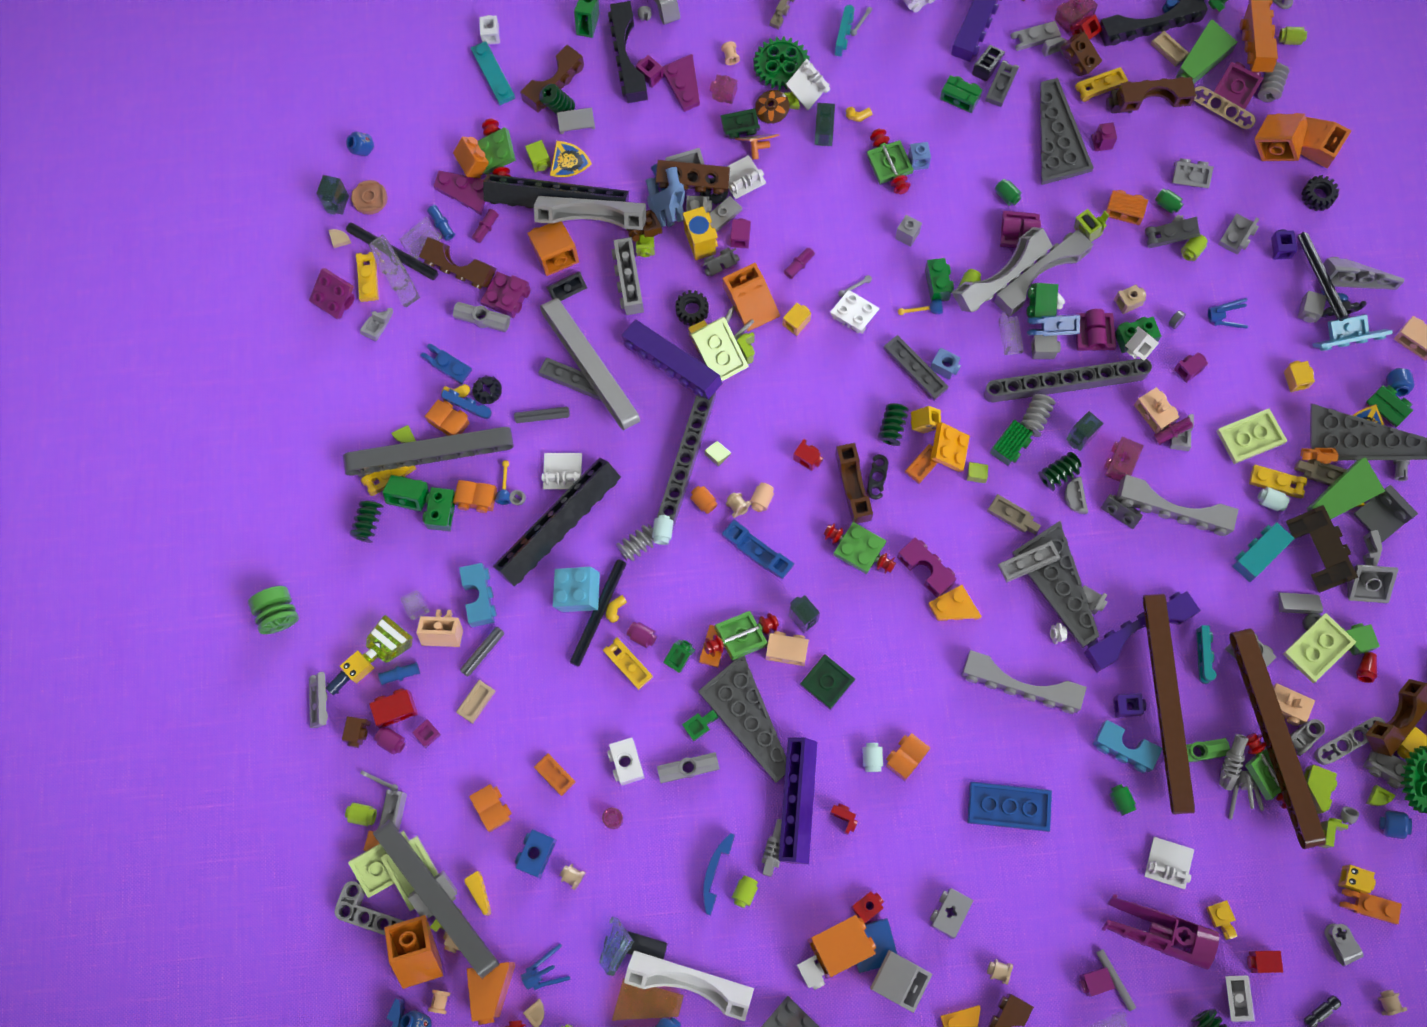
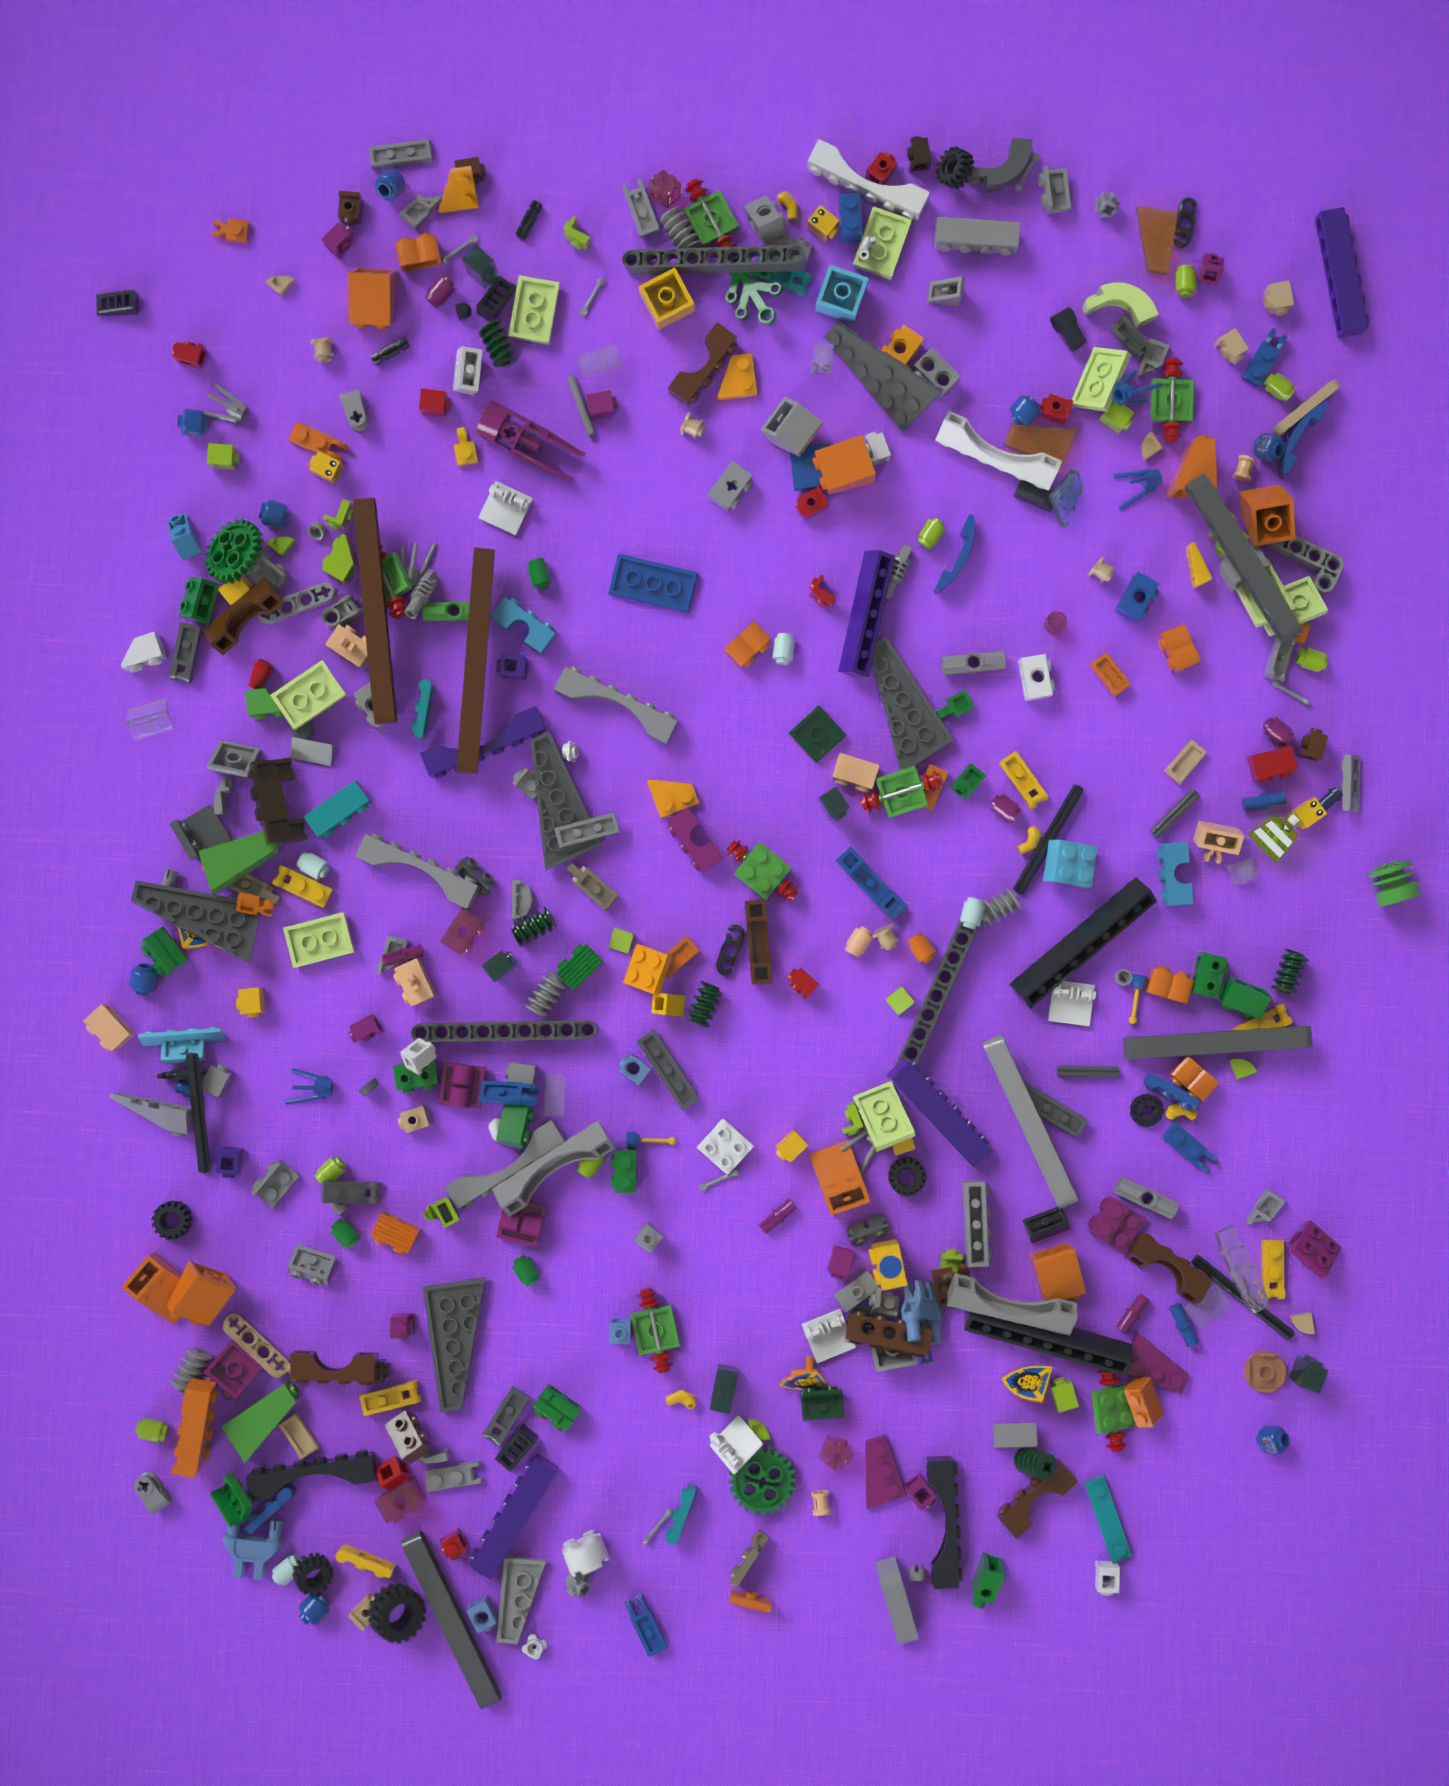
camera: 175 degrees left, 15 degrees up
(426, 733) = (1239, 734): magenta plate -> none
(773, 113) = (771, 1420): reddish brown dish -> none

